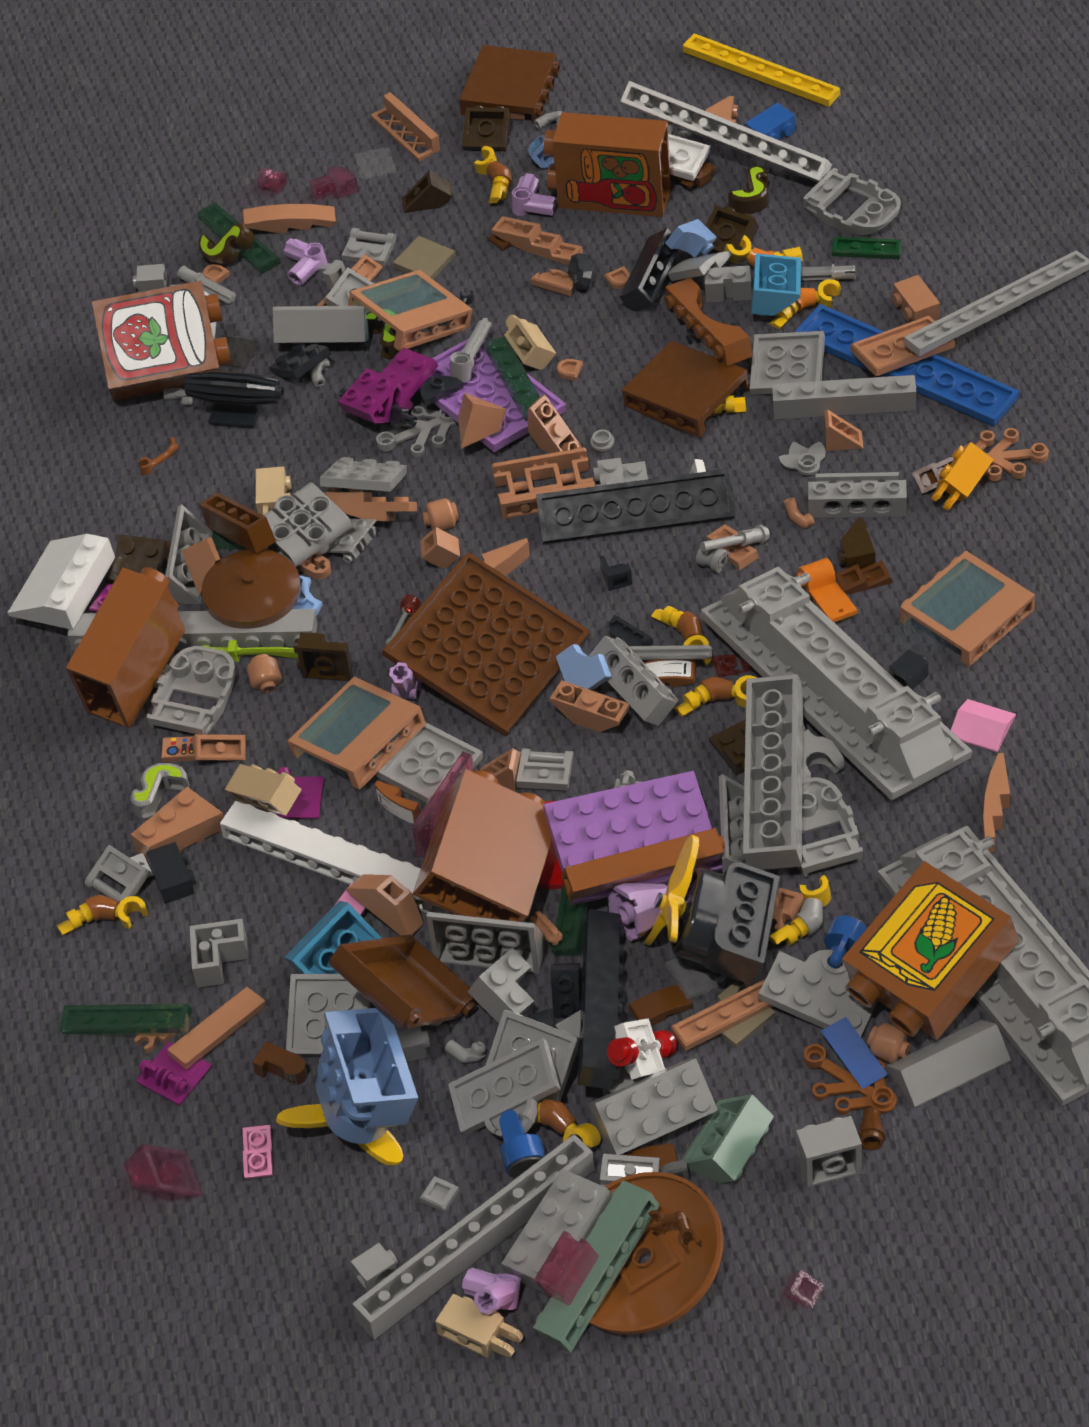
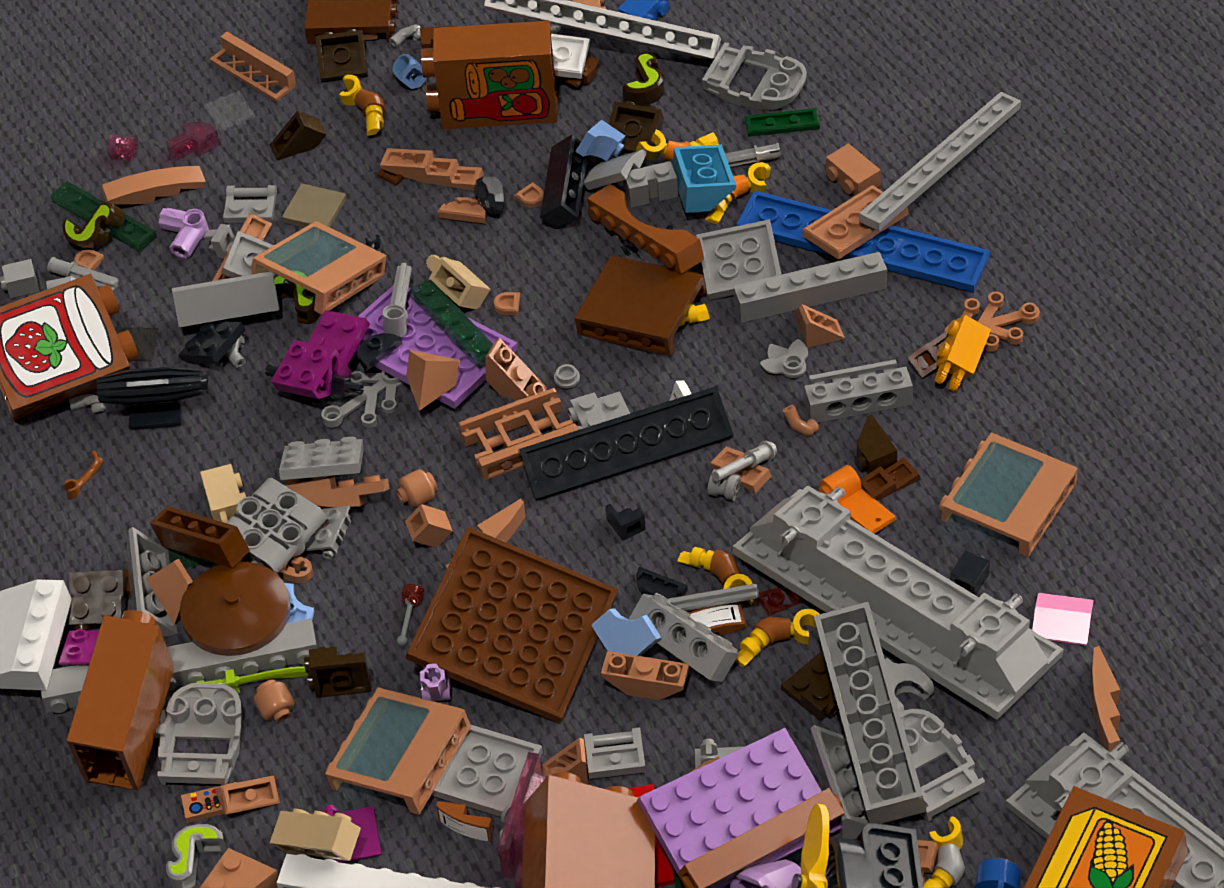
camera: 15 degrees left, 0 degrees up
(527, 201) = (407, 128): lavender piece -> none

